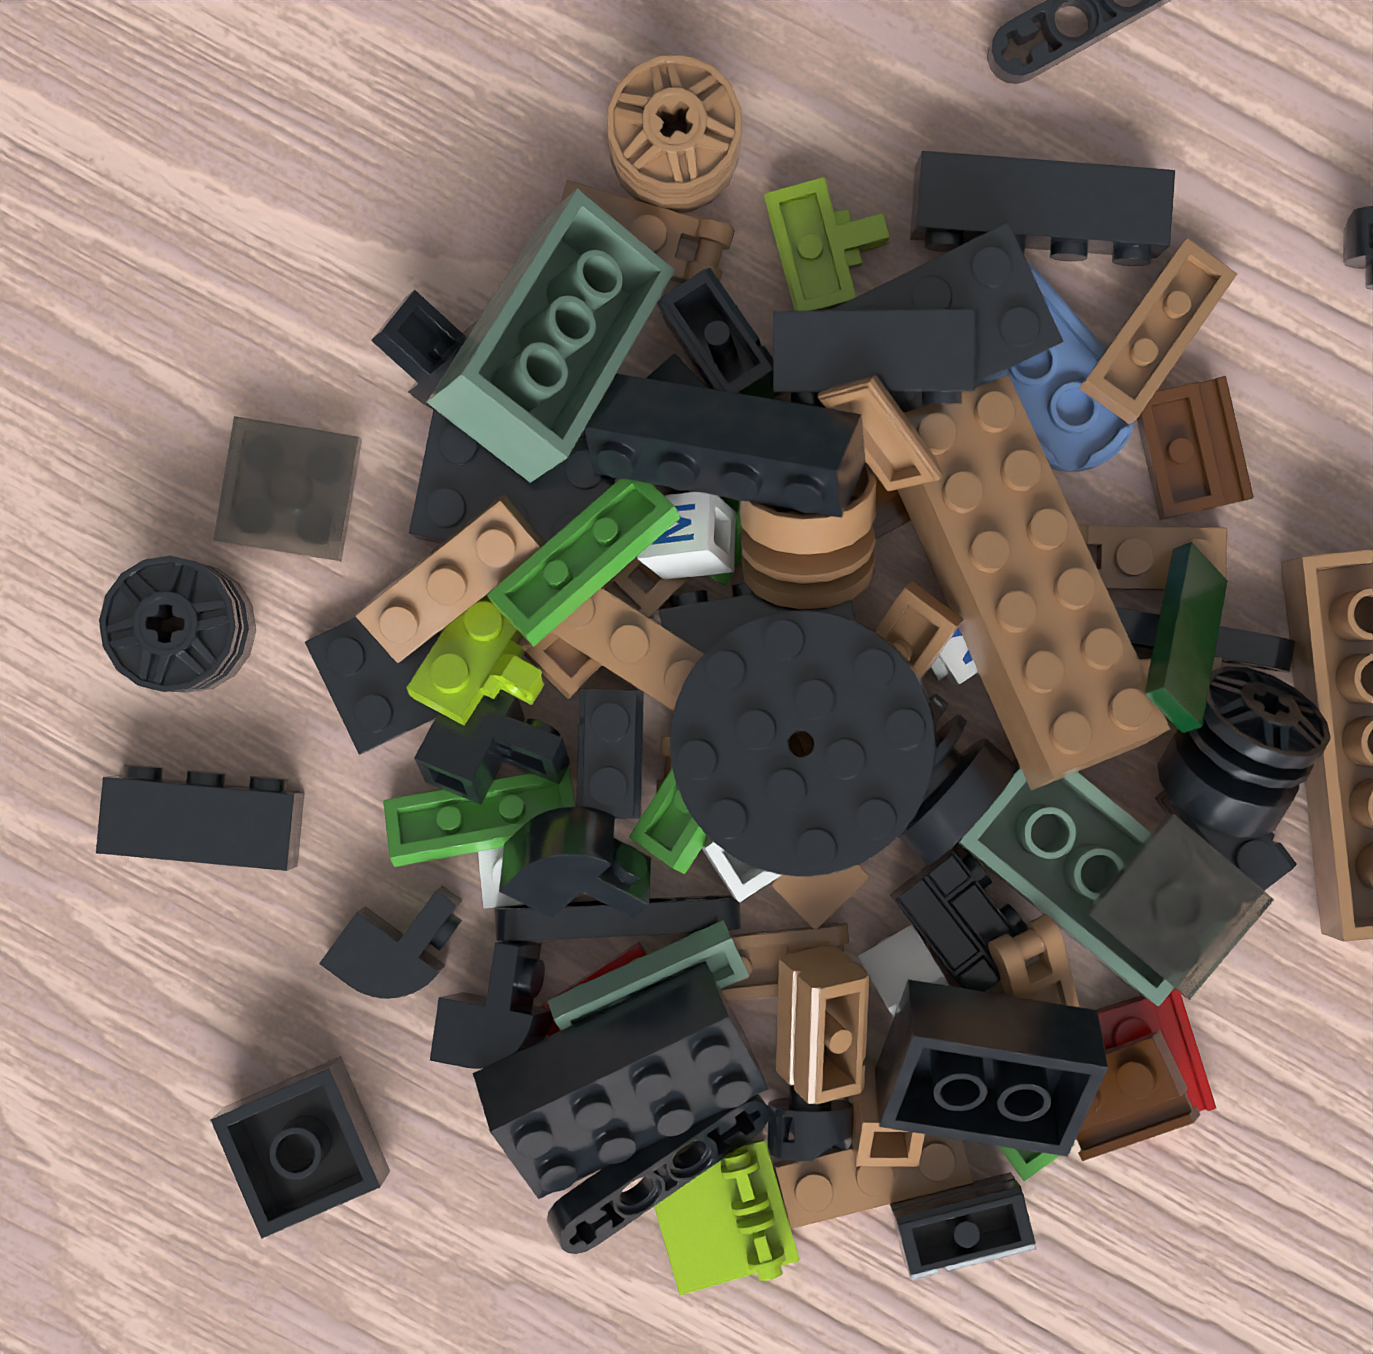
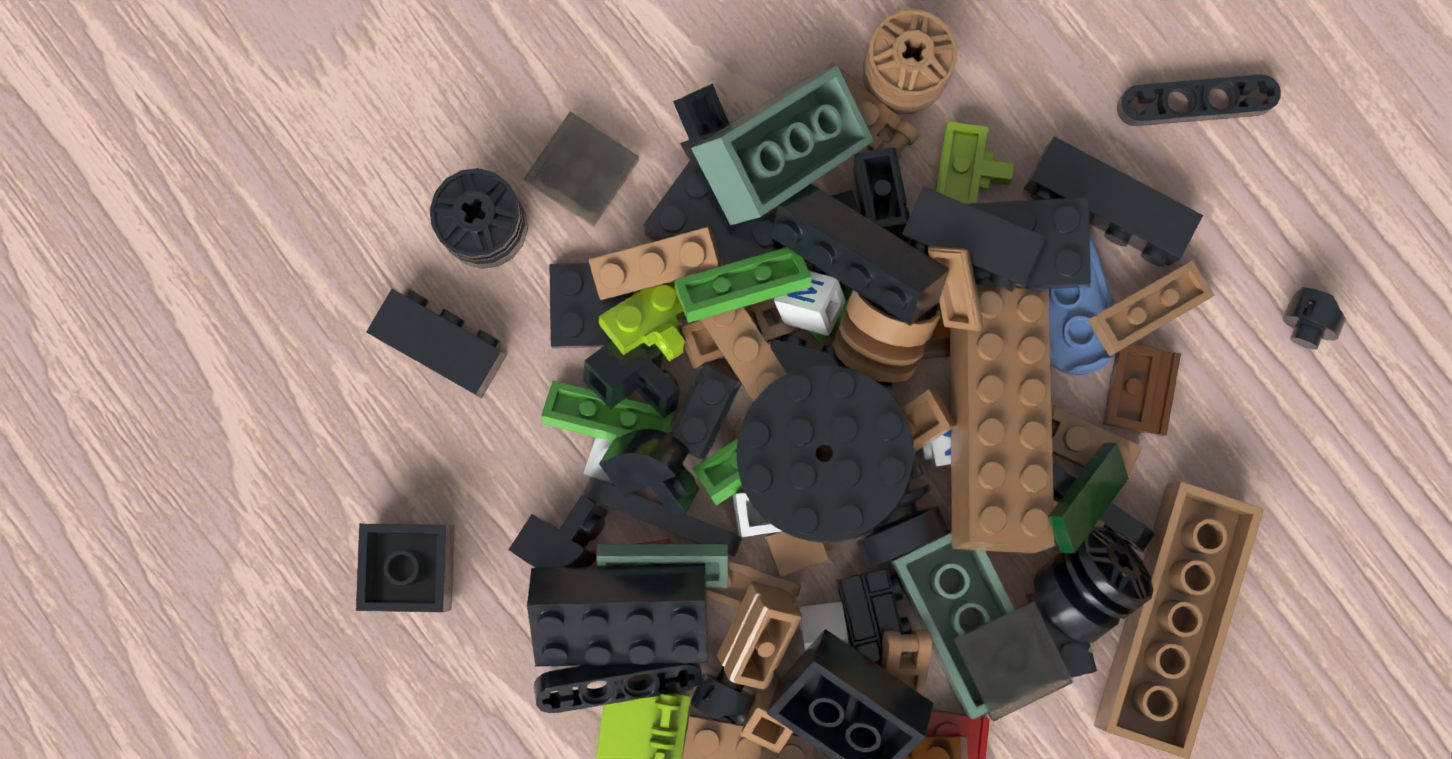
camera: 20 degrees right, 5 degrees down
(383, 960) = (510, 481): black brick -> none

